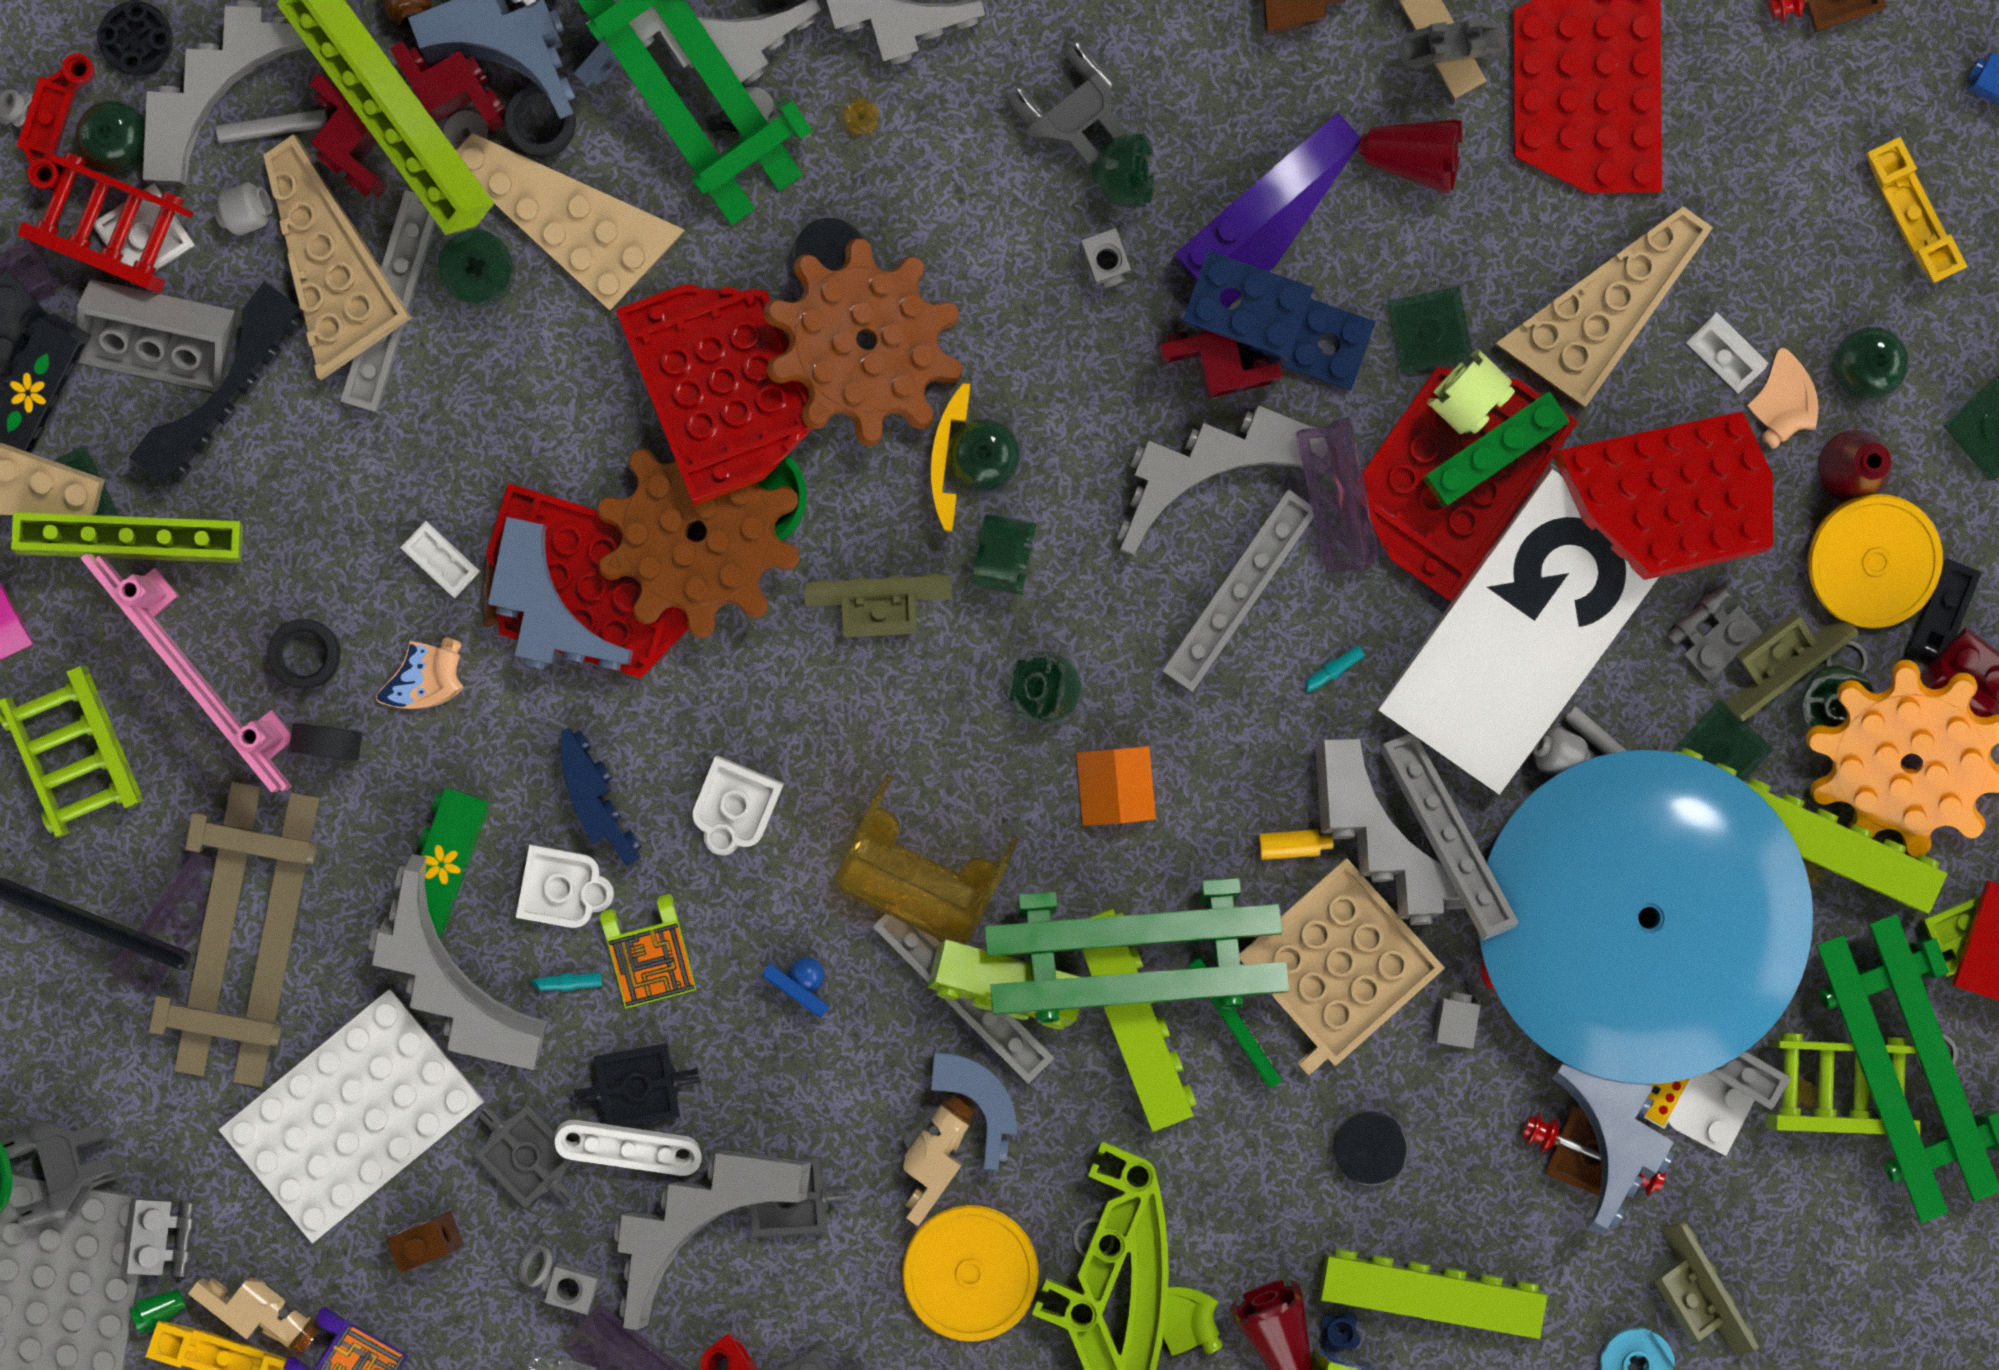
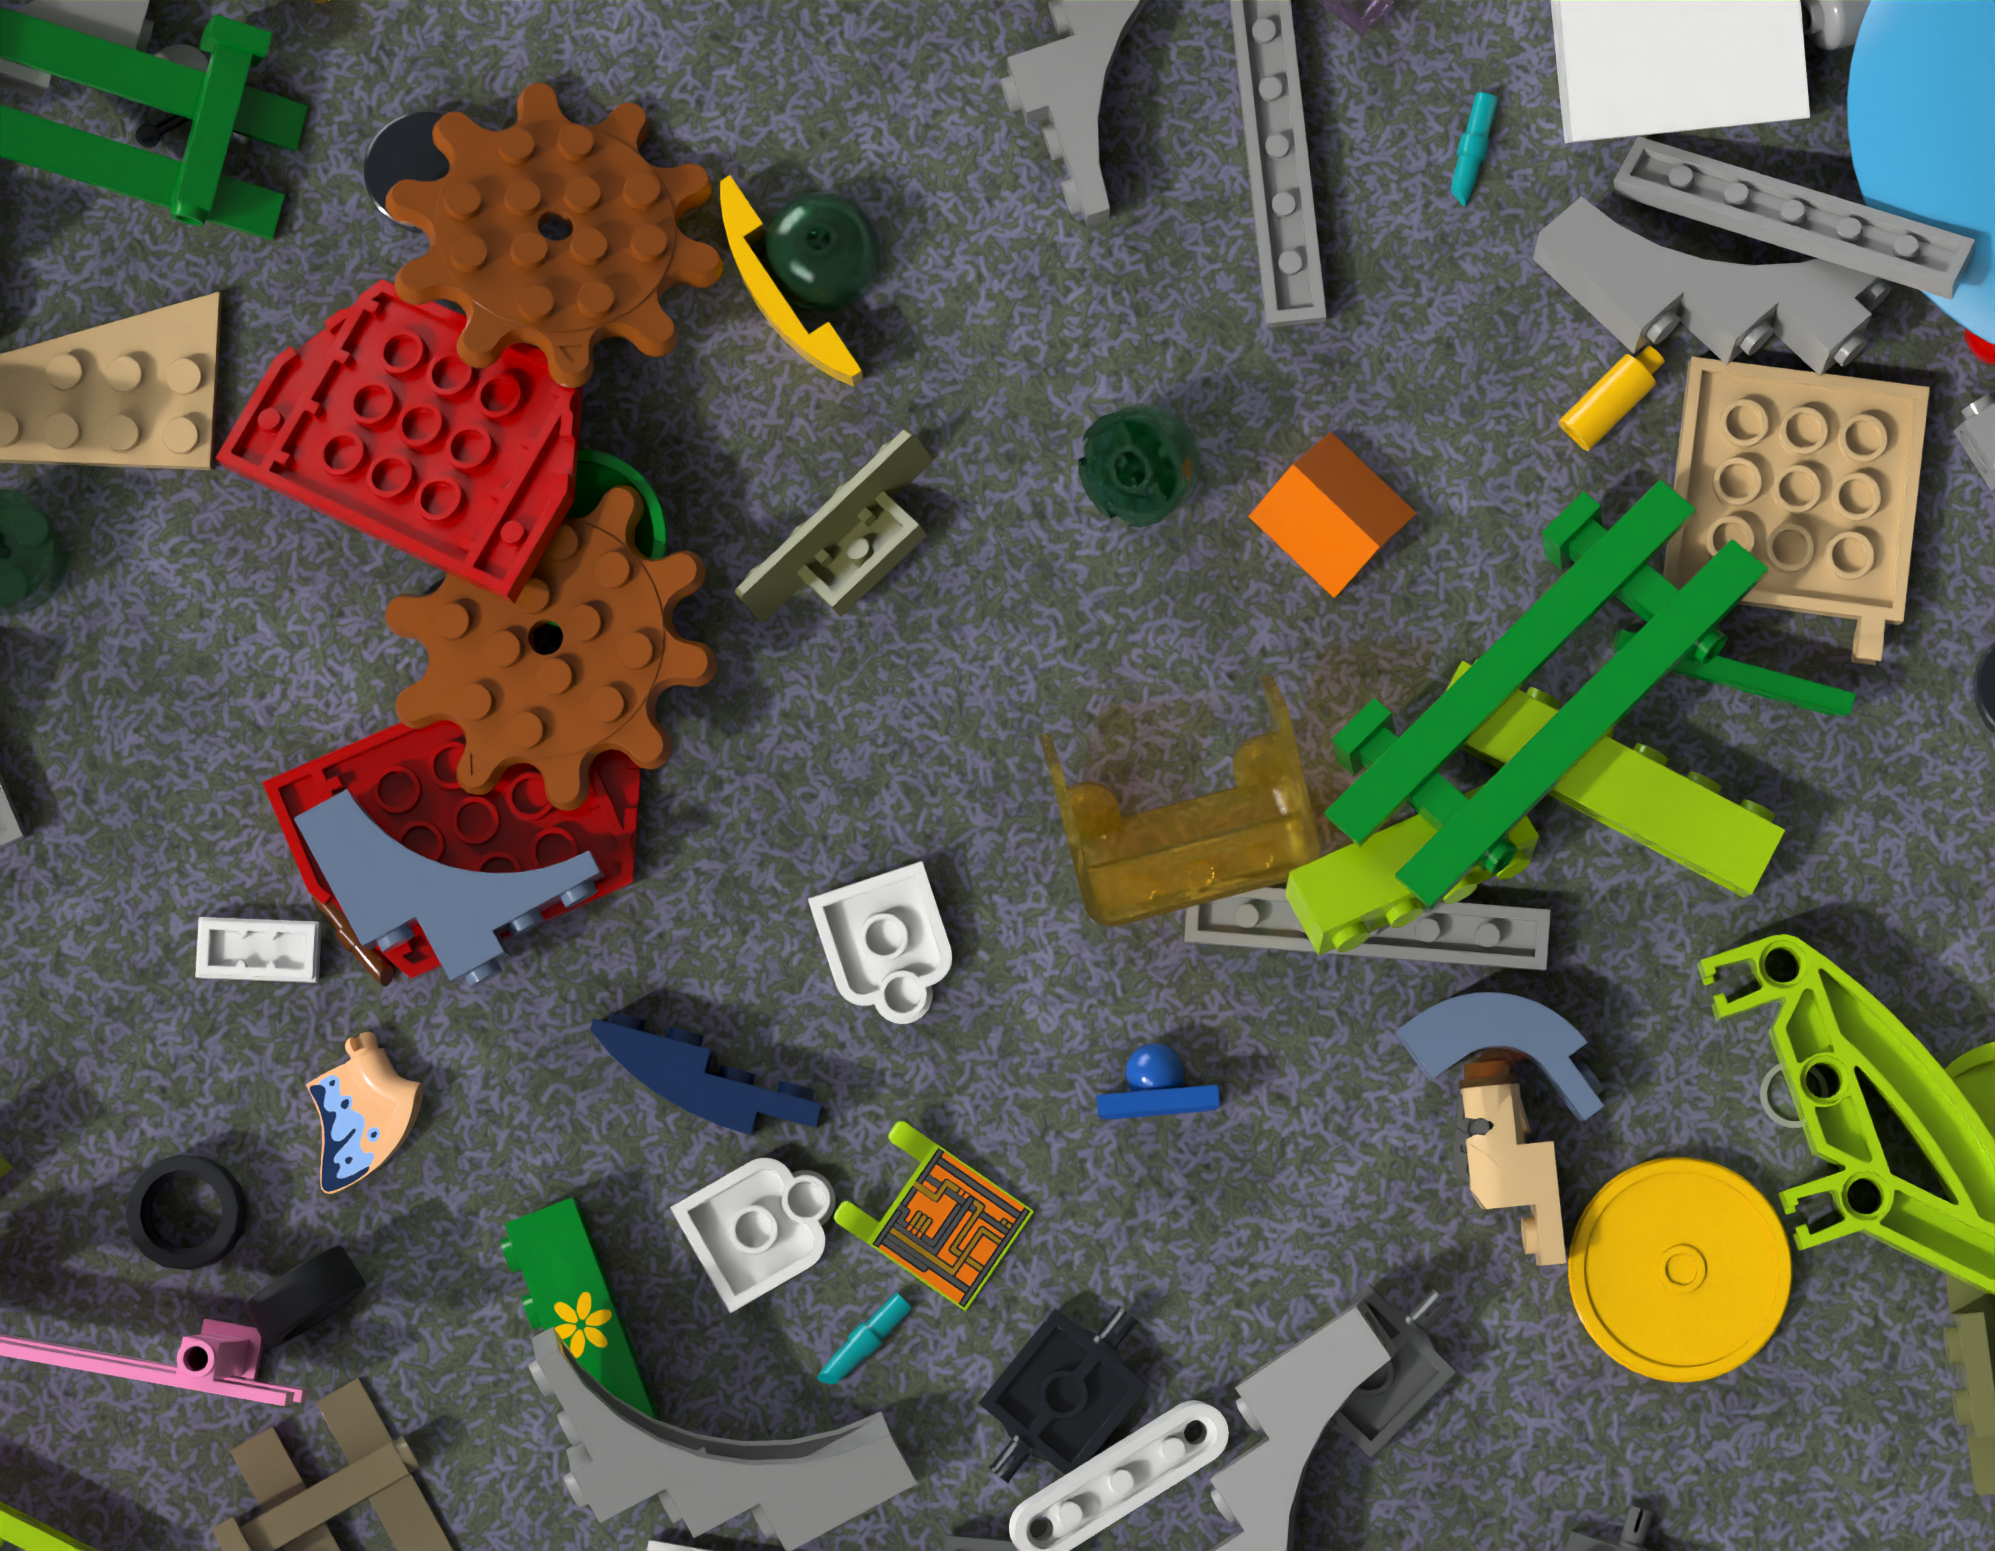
camera: 35 degrees left, 5 degrees down
(1003, 554) = (950, 344): clear green brick -> none

